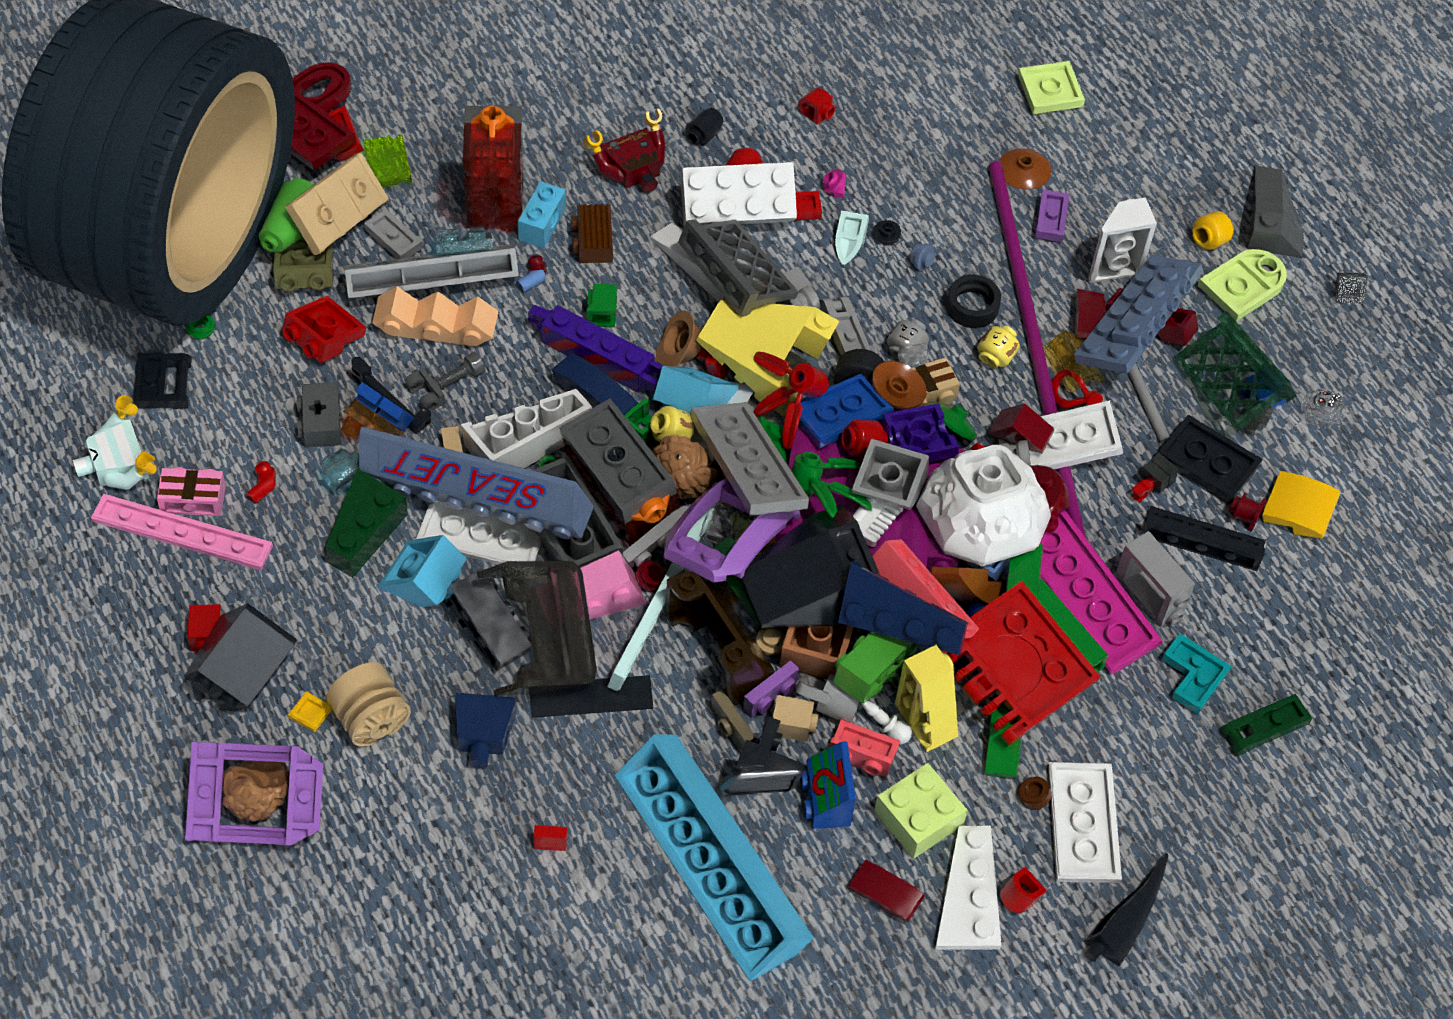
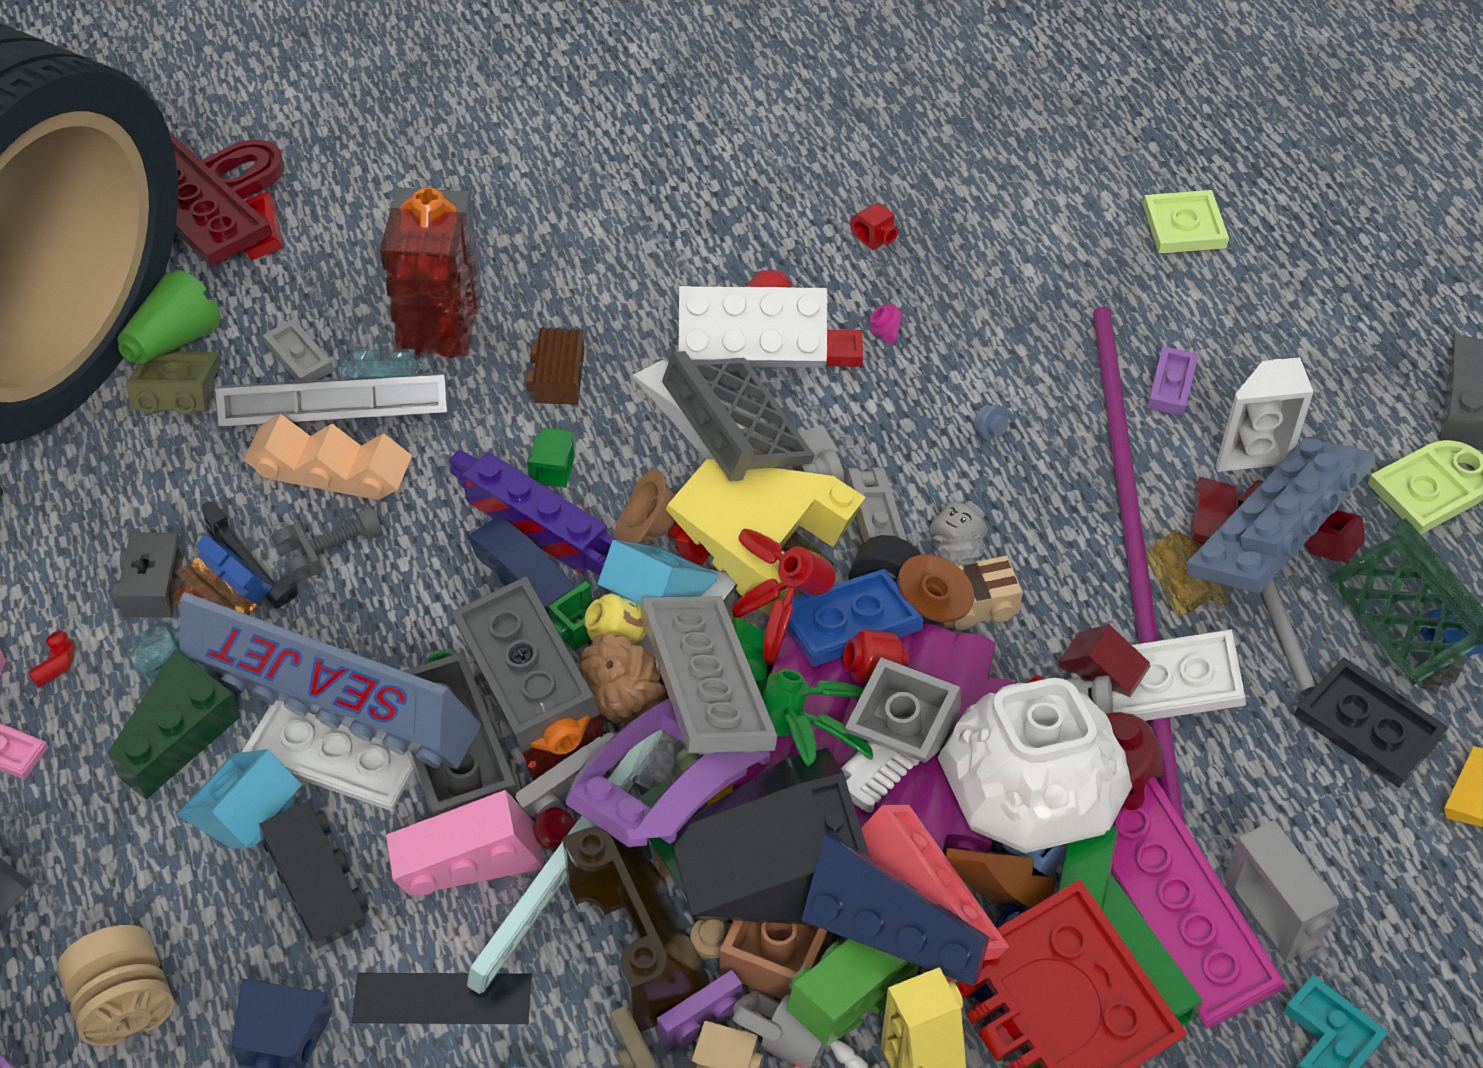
camera: 10 degrees right, 5 degrees down
(203, 332) = (26, 458): green plate -> none
(310, 712) = (38, 988): yellow tile -> none
(322, 328) = (177, 463): red plate -> none
(336, 203) = (226, 306): tan container -> none
(388, 160) = (309, 262): clear neon green plate -> none
(451, 438) = (318, 621): tan piece -> none
(525, 433) = (410, 621): white wedge -> none
(536, 273) = (474, 412): medium blue arm -> none
(542, 214) = (493, 338): medium azure brick -> none
(556, 623) = (405, 890): clear smoke windscreen -> none
(632, 157) = (624, 274): dark red torso -> none
(704, 126) = (724, 243): black brick -> none
(850, 235) = (897, 388): light aqua plate -> none
(887, 237) = (945, 394): black plate -> none
(919, 430) = (957, 651): dark purple brick -> none
(956, 420) = (1009, 640): green dish -> none
(973, 318) = (1050, 506): black tyre -> none
(998, 346) = (1083, 546): light yellow head -> none
(1028, 175) = (1142, 329): dark orange dish -> none
(1090, 398) = (1205, 624): red piece -> none
(1156, 474) = (1292, 738): pearl dark grey piece -> none
(1205, 538) = (1369, 842): black fence -> none
(1212, 230) = (1392, 412): yellow head -> none
(1247, 510) = (1422, 798): dark red brick -> none

